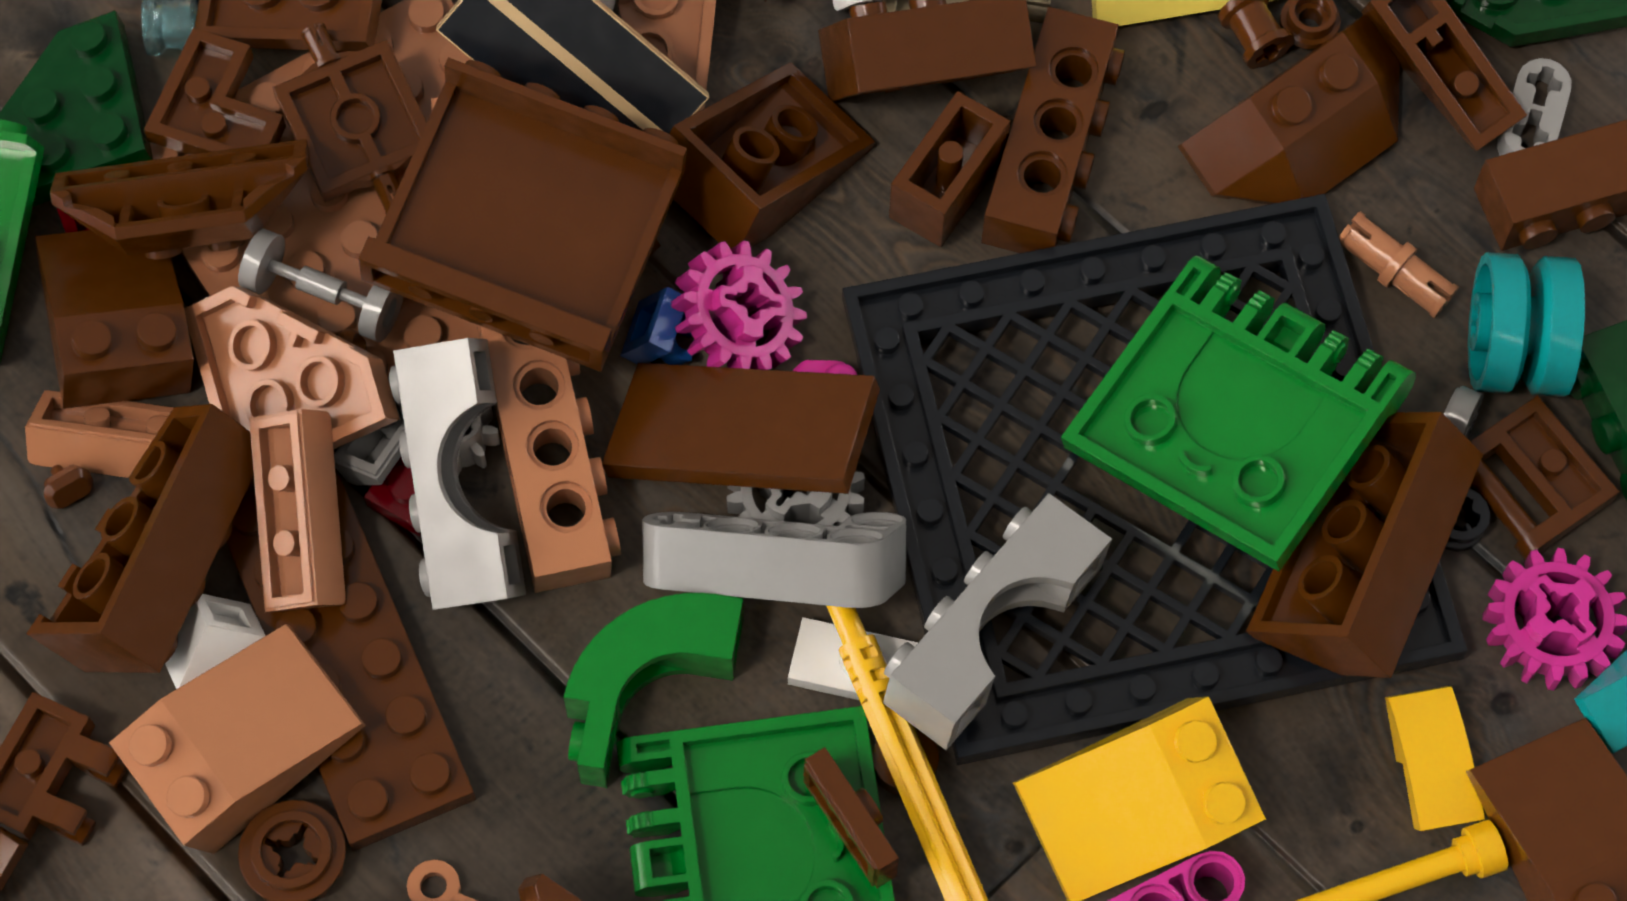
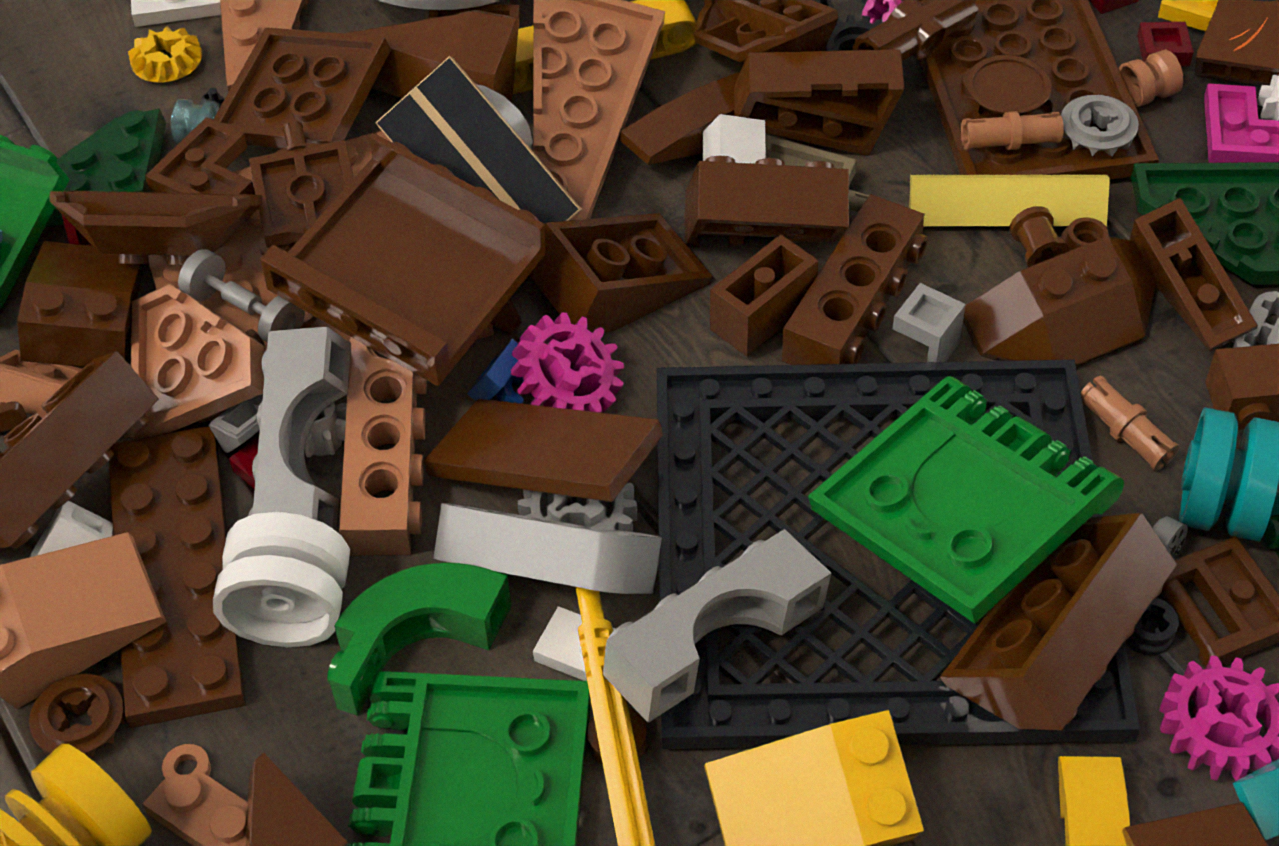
camera: 15 degrees right, 15 degrees down
(297, 510) = (165, 449): nougat slope -> none
(488, 653) = (281, 579): none -> white wheel
(852, 816) = (552, 763): reddish brown plate -> none
(1152, 173) = (931, 320): none -> light grey panel

